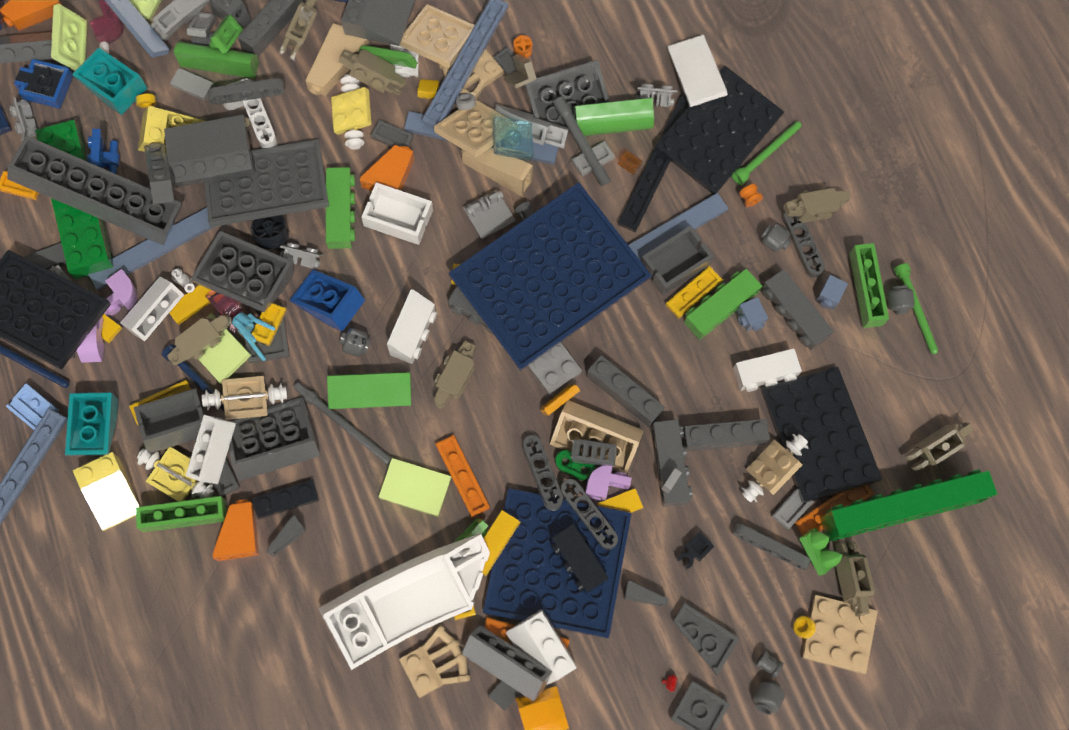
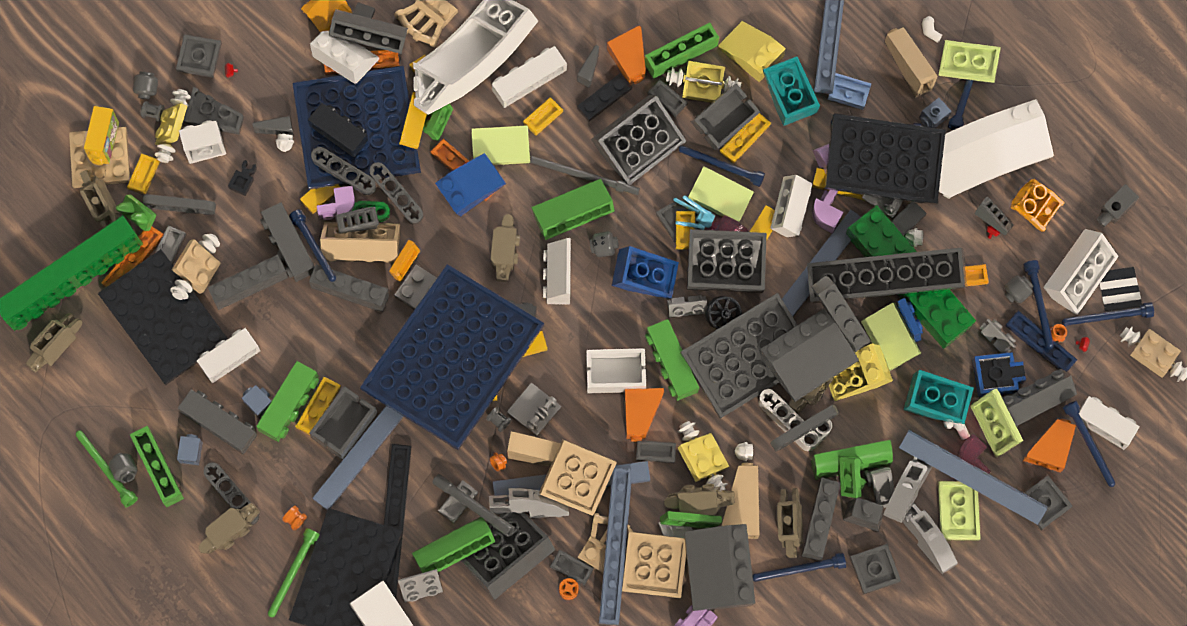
camera: 160 degrees right, 0 degrees up
(49, 237) = (915, 237): none -> white plate
(121, 150) = (892, 334): none -> yellowish green tile
(145, 100) = (897, 395): yellow tile -> none
(183, 280) = (779, 244): white arm -> none
(191, 84) = (864, 430): light grey tile -> none
(198, 338) = (735, 191): dark tan hinge -> none
(210, 449) = (680, 103): white brick -> none
(244, 397) = (676, 162): tan plate -> none
(310, 104) = (744, 451): none -> white plate
(354, 549) = (529, 76): none -> white brick
(358, 503) = (543, 116): none -> yellow tile
(427, 88) = (642, 512): yellow slope -> none
(463, 450) = (470, 184): none -> blue slope
(465, 101) = (599, 504): light grey tile -> none
(512, 138) = (536, 470): clear light blue tile -> none
(524, 73) = (557, 547): dark tan panel -> none
(542, 178) = (498, 461): none -> orange plate
(627, 164) = (413, 513): clear orange piece -> none
(638, 575) = (284, 142): none -> white plate
(652, 483) = (299, 219): none -> dark blue piece
(671, 481) = (281, 217): light grey tile -> none
(727, 602) = (202, 141): none -> white brick
(754, 635) = (170, 125): none -> light yellow plate
(776, 237) = (258, 483): dark grey head -> none
(798, 597) = (143, 174): none -> yellow tile
(804, 627) = (131, 150): yellow tile -> none
(836, 643) = (101, 135): none -> yellow brick

